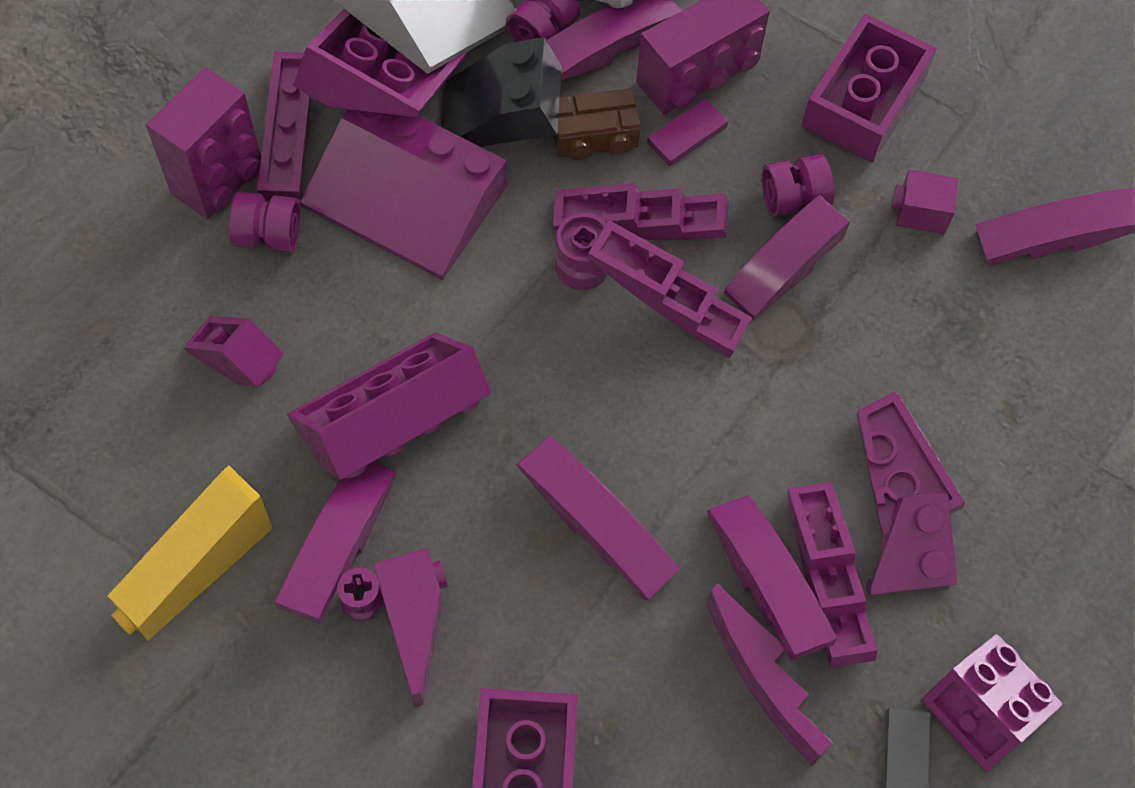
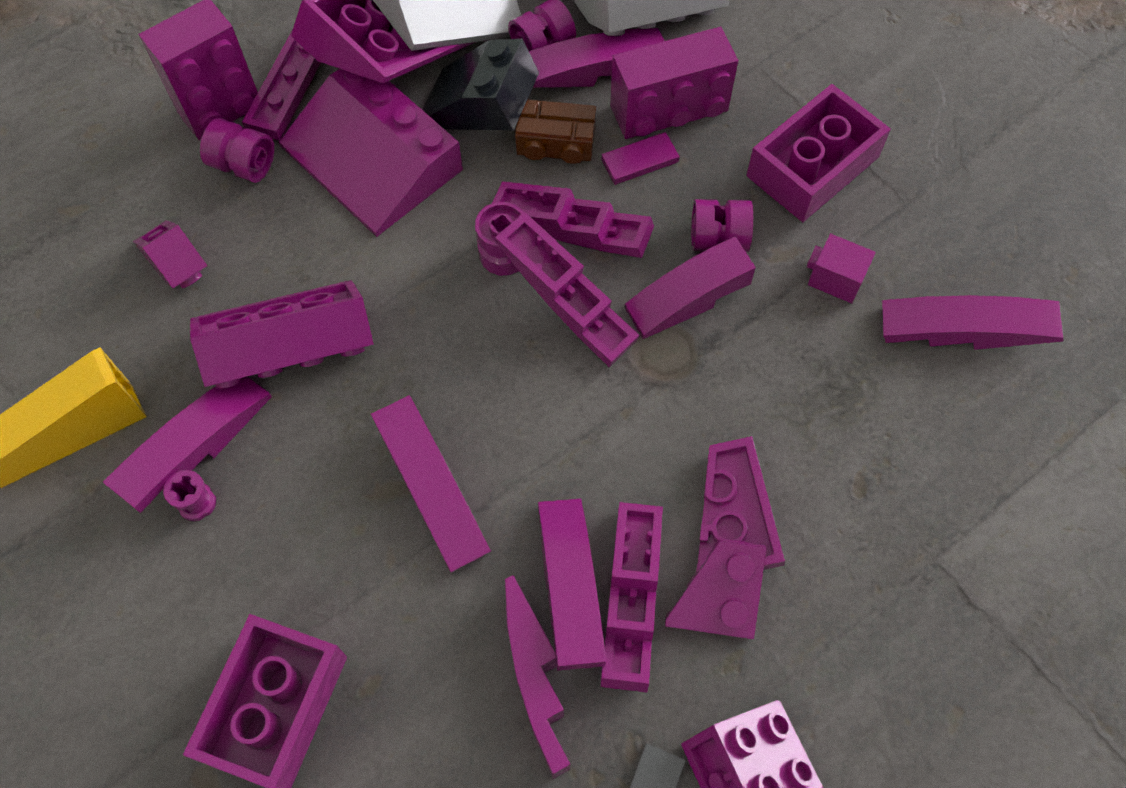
camera: 20 degrees right, 0 degrees up
(413, 605) = (230, 524): magenta slope -> none

